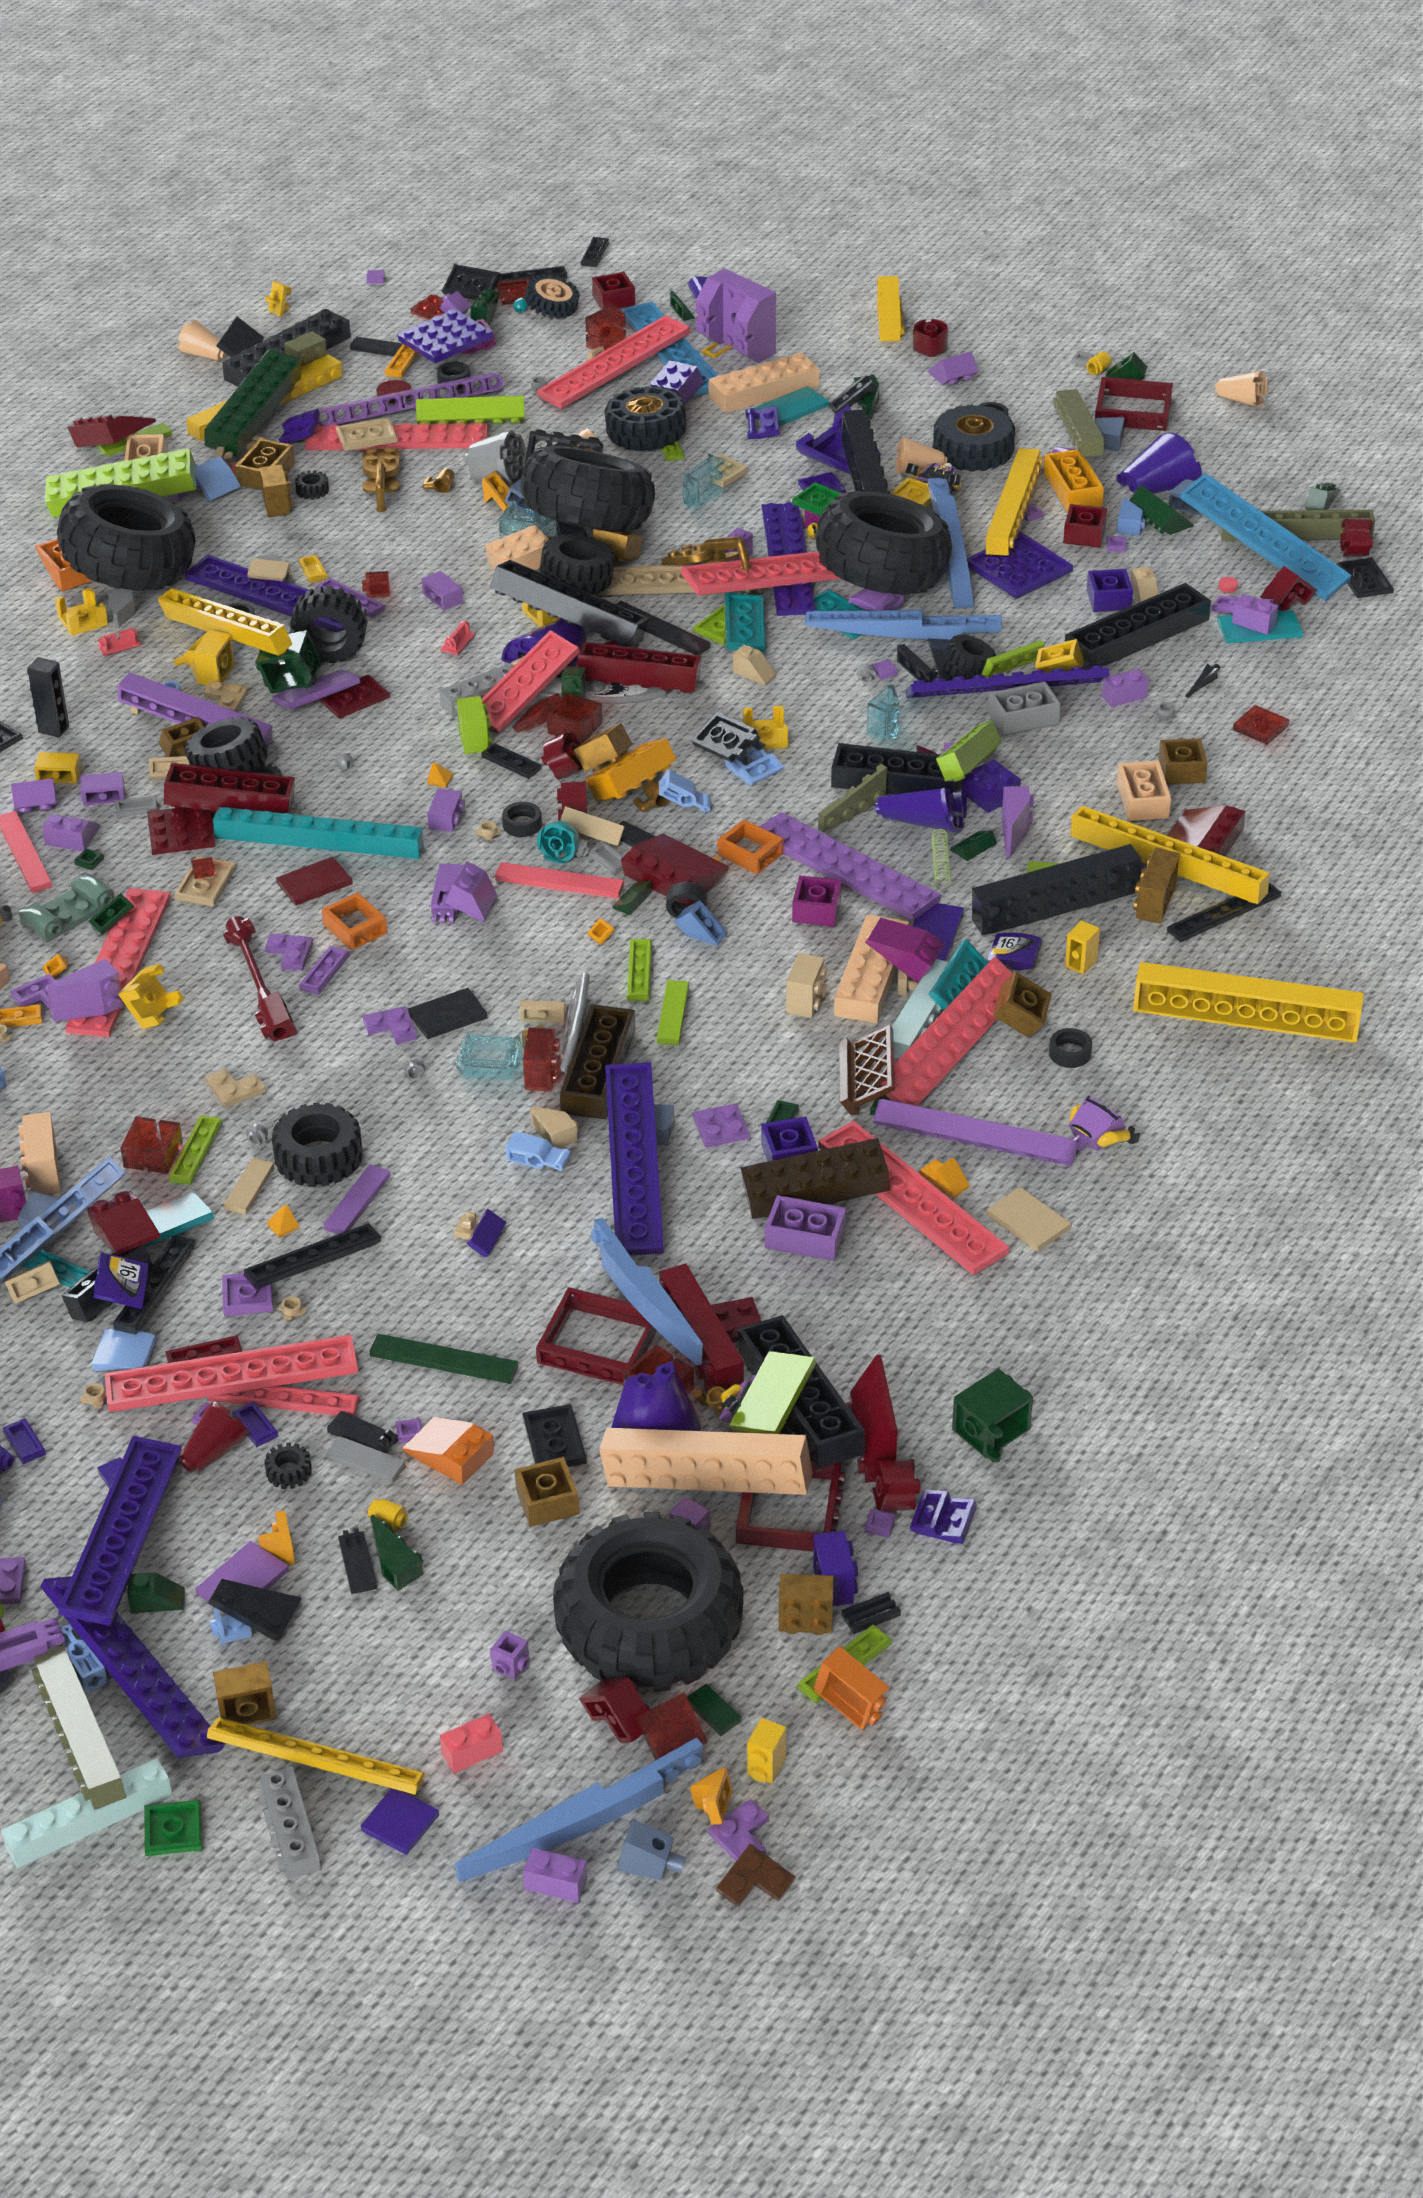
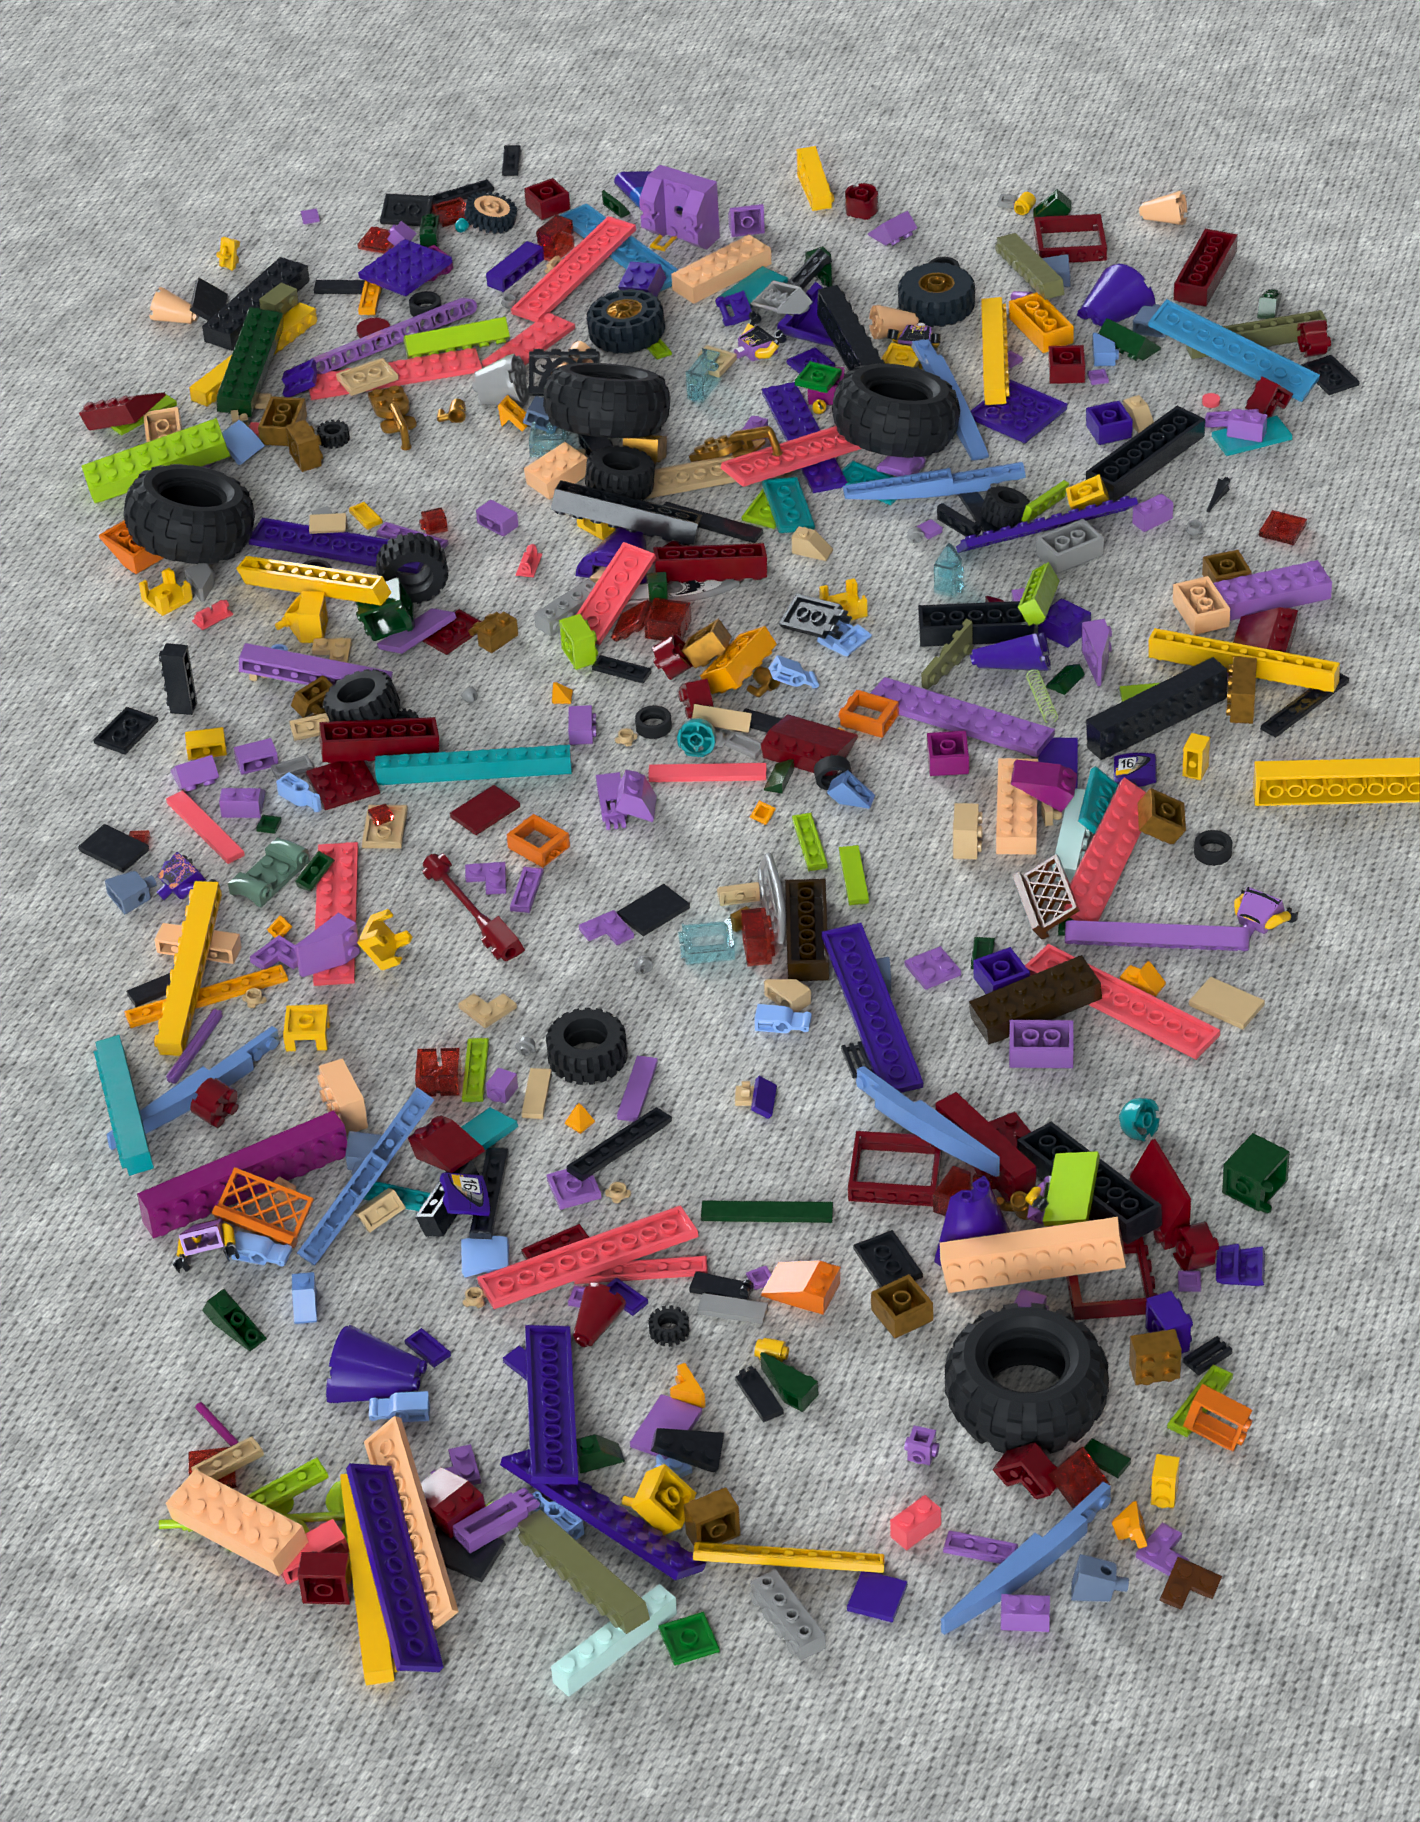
camera: 10 degrees left, 0 degrees up
(36, 1070) = (306, 1023): none -> yellow panel
(129, 831) = (298, 792): none -> light blue piece
(196, 1658) = (661, 1499): none -> yellow piece
(214, 1171) = (501, 1085): none -> medium lavender brick
(395, 702) = (495, 631): none -> pearl gold brick
(532, 1785) = (978, 1547): none -> medium lavender tile
(557, 351) = (515, 266): none -> dark purple brick
(559, 419) = (537, 336): none -> coral plate
(602, 1197) = (853, 1048): none -> black tile
(772, 457) = (756, 342): none -> torso
(805, 338) = (746, 220): none -> medium lavender slope
(811, 418) = (782, 299): none -> light grey slope
(885, 1324) = (1139, 1114): none -> teal cylinder
(1229, 785) = (1275, 588): none -> medium lavender brick
(1265, 451) = (1205, 267): none -> dark red brick

